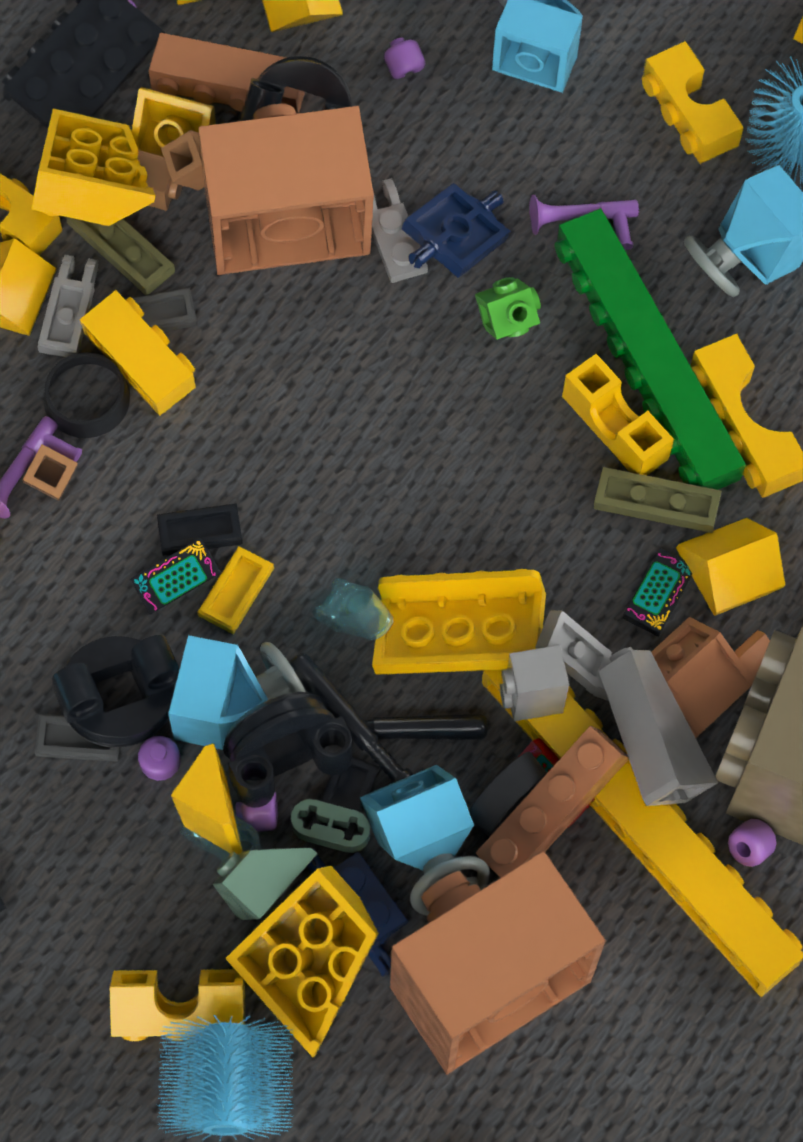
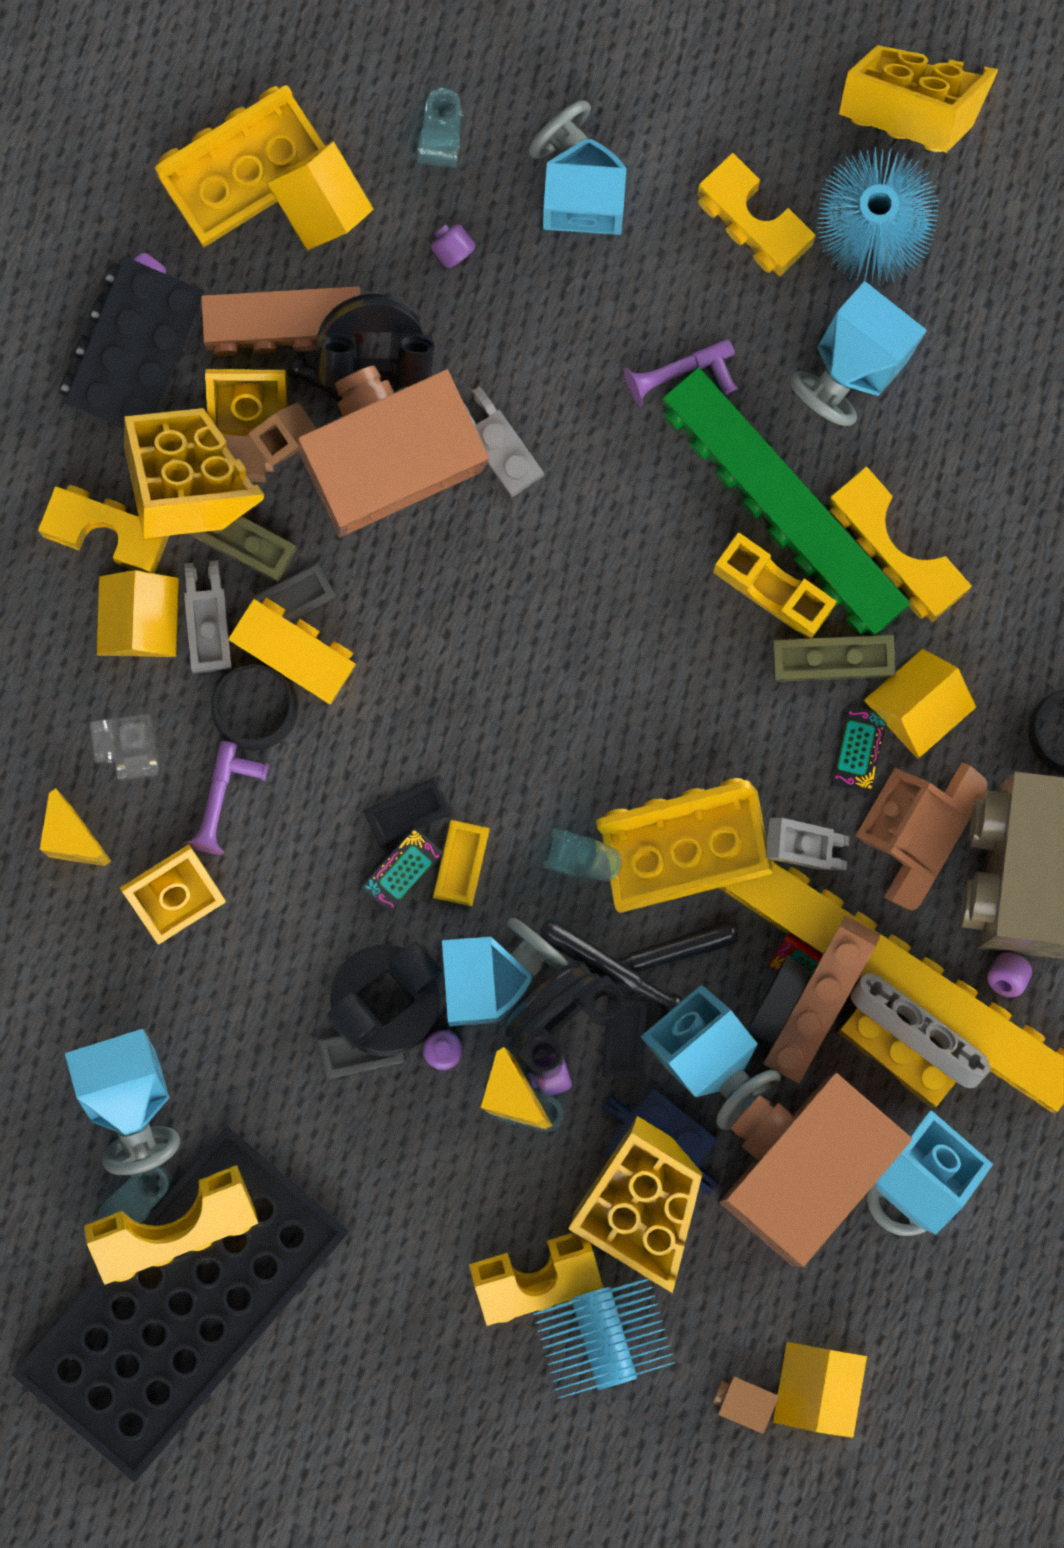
camera: 15 degrees left, 15 degrees up
(50, 472) = (250, 802): medium nougat brick -> none
(258, 878) = (580, 1144): sand green slope -> none
(333, 816) = (622, 1062): sand green beam -> none
(456, 229) = (561, 427): dark blue plate -> none
(508, 308) = (637, 499): bright green brick -> none
(535, 683) = (775, 894): light grey brick -> none
(609, 1011) = (928, 1179): none -> medium azure piece
(630, 900) = (907, 1065): none -> yellow arch
(645, 863) = (874, 993): none -> light grey beam
(654, 730) = (894, 900): light grey slope -> none

